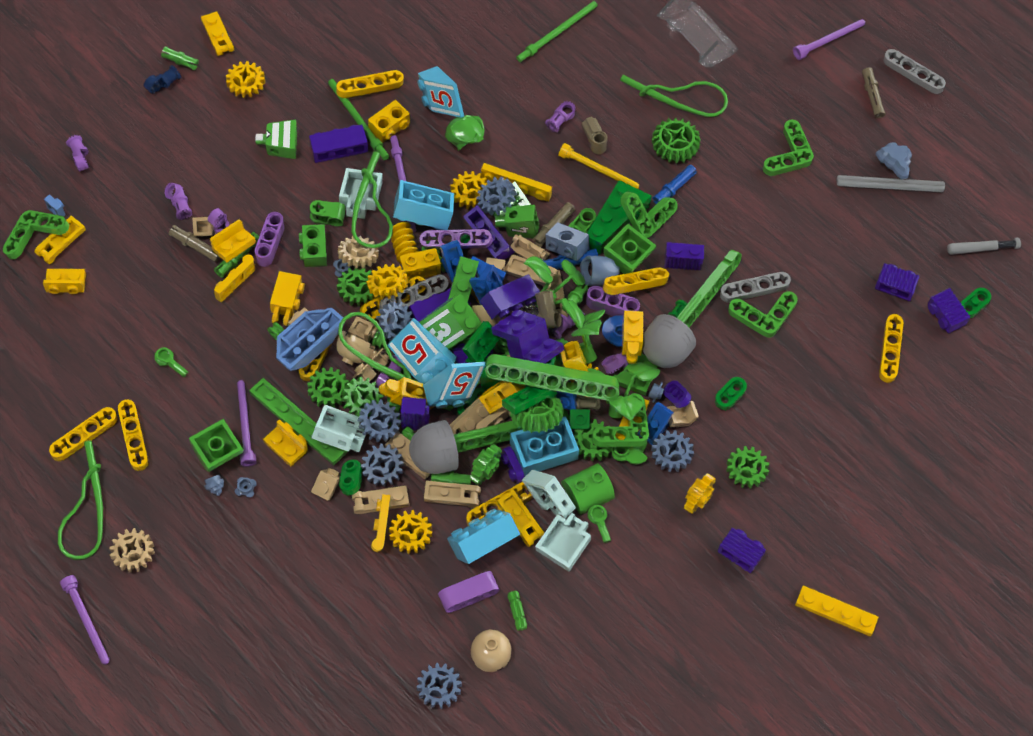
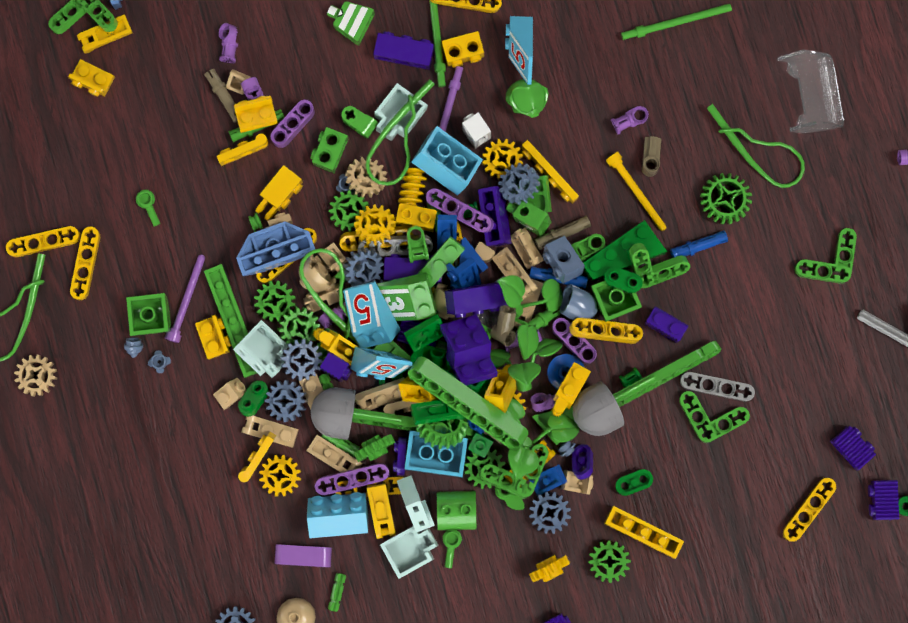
camera: 35 degrees right, 20 degrees up
(434, 282) = (417, 246): none -> bright green piece
(435, 172) = (476, 129): none -> white brick
(478, 501) = (352, 481): none -> medium lavender beam
(629, 230) = (622, 282): none -> green plate
(763, 427) = (643, 532): none -> yellow brick

